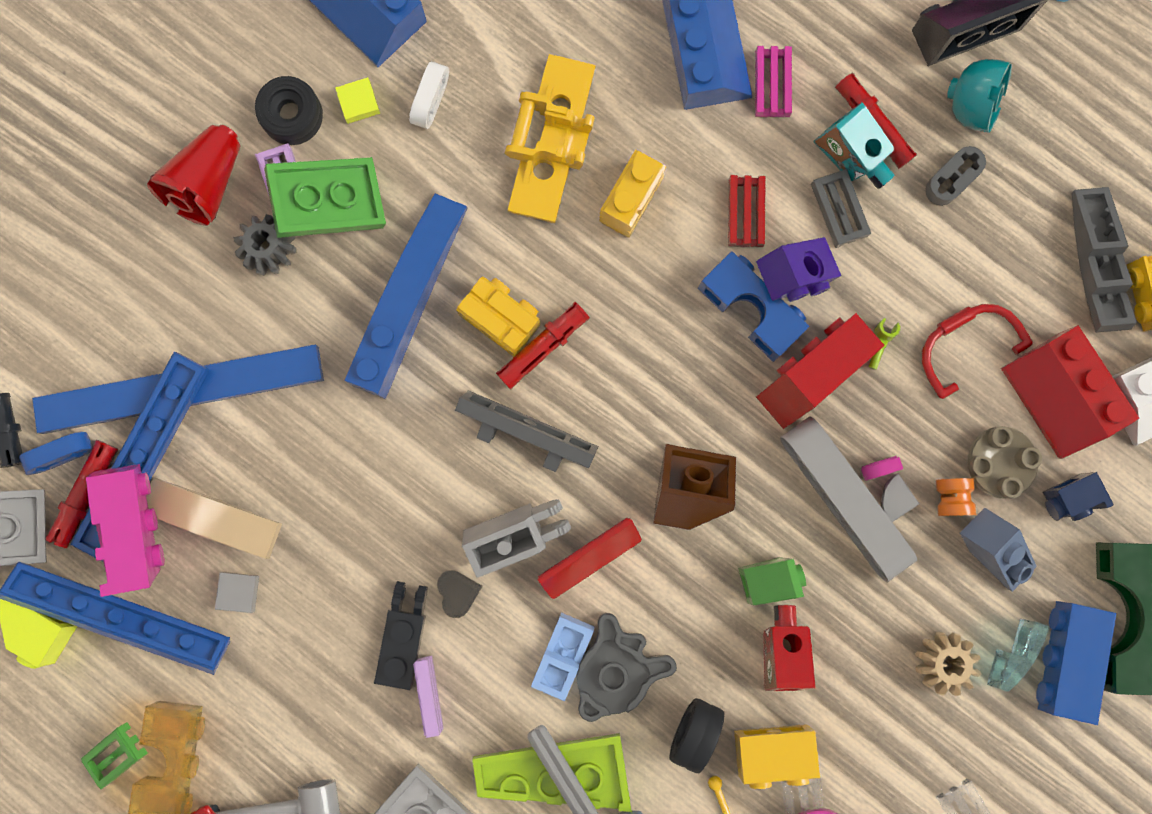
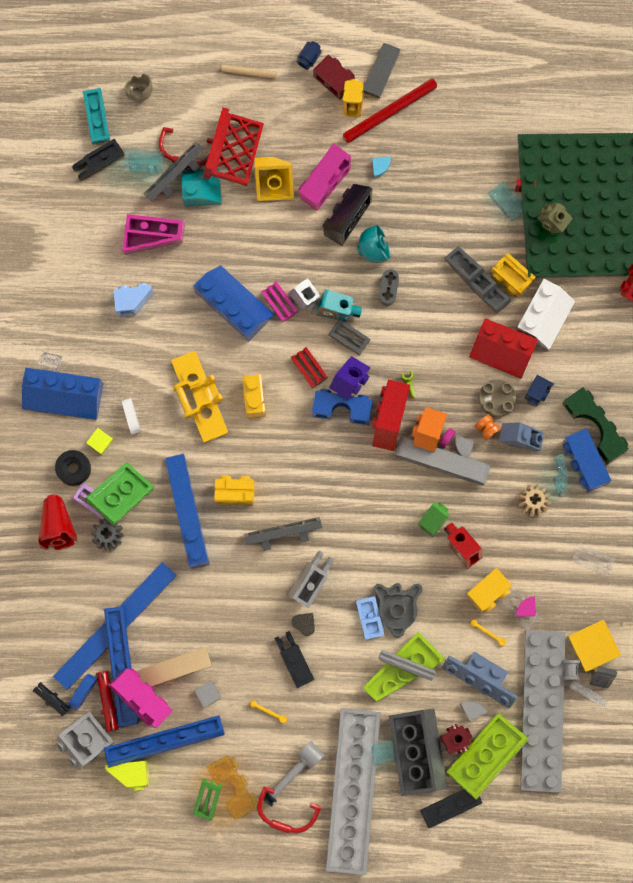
camera: 30 degrees left, 5 degrees down
(321, 712) = (253, 704): none -> yellow hinge
(428, 696) = (334, 685): lavender tile -> none
(547, 341) = (263, 489): red pin -> none
(590, 558) = (350, 567): red slope -> none
(694, 487) = (373, 504): reddish brown slope -> none
(697, 735) = (449, 606): black tyre -> none
(820, 96) = (305, 295): none -> light grey brick
(855, 94) = (322, 283): red pin -> none
(865, 436) = (429, 429): none -> orange brick
(955, 322) = (435, 349): red piece -> none

